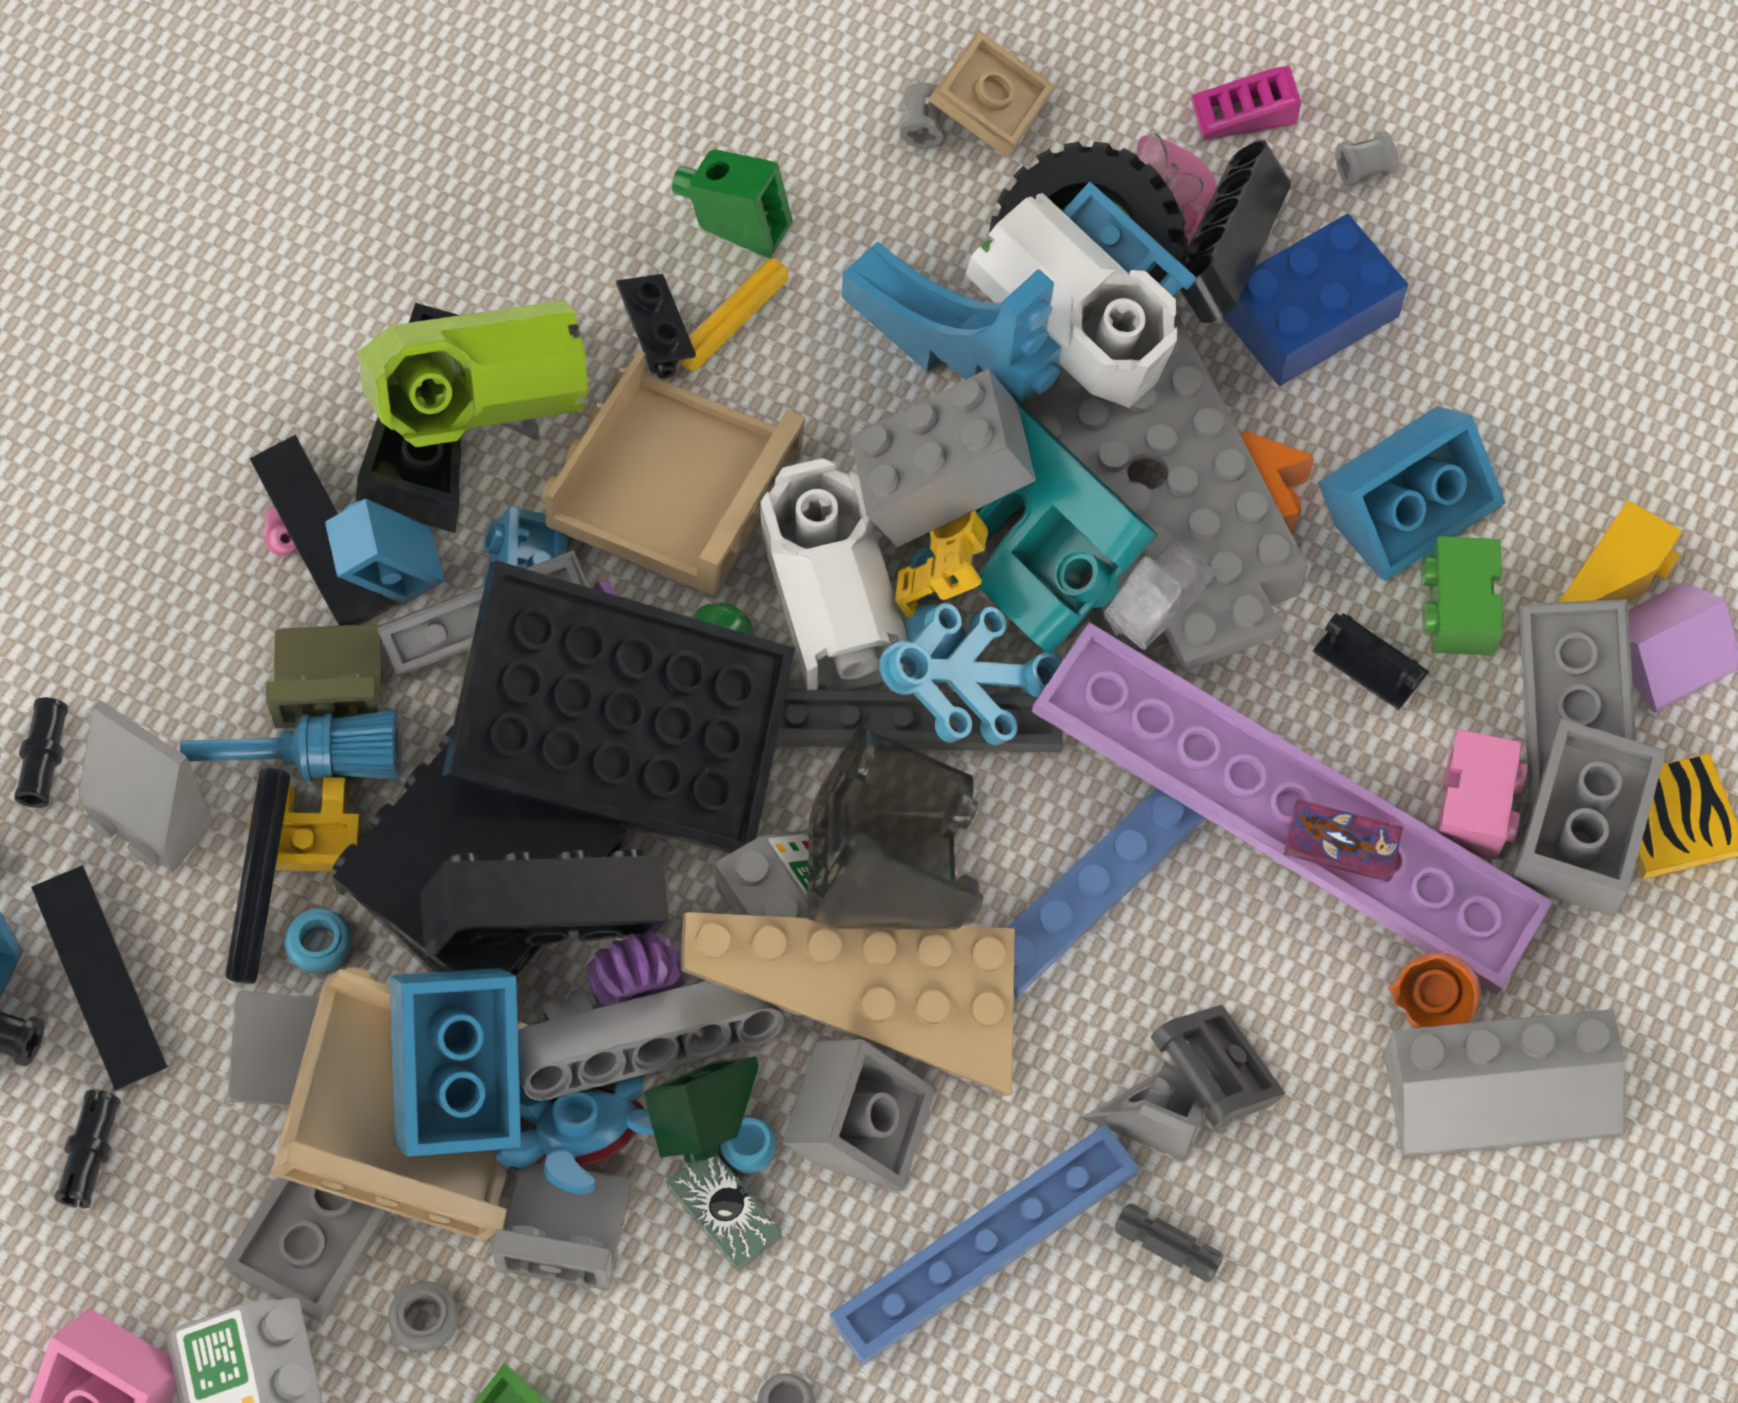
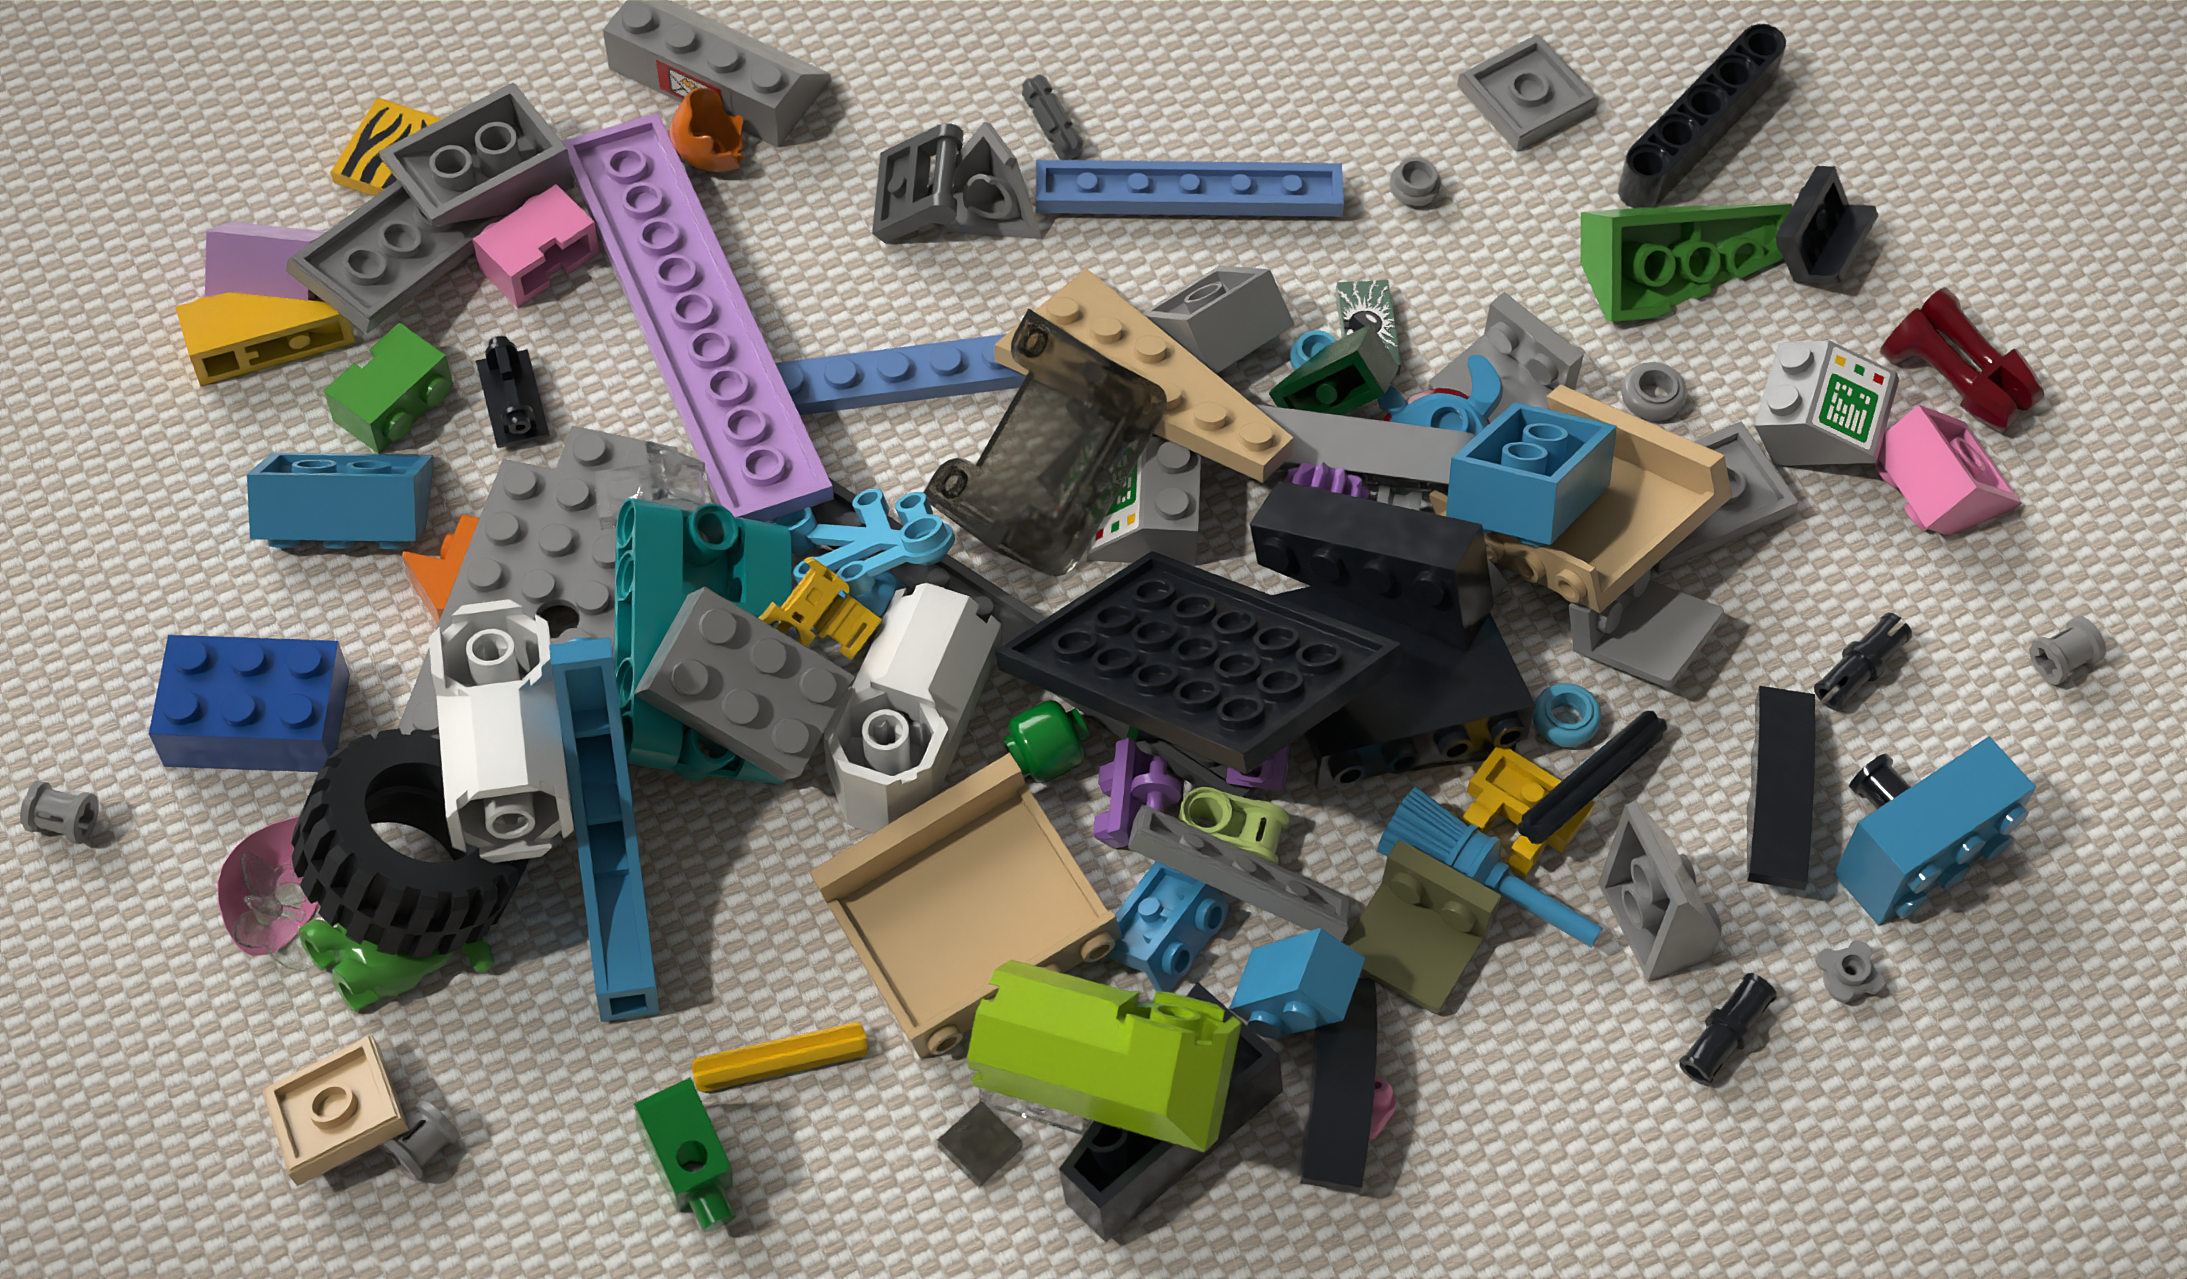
camera: 145 degrees left, 5 degrees down
(656, 322) = (863, 1080): black hinge -> none
(1125, 238) = (408, 755): dark azure plate -> none
(1234, 230) = (249, 802): black beam -> none
(1260, 86) = (72, 927): dark pink slope -> none
(1343, 840) = (682, 252): tile -> none

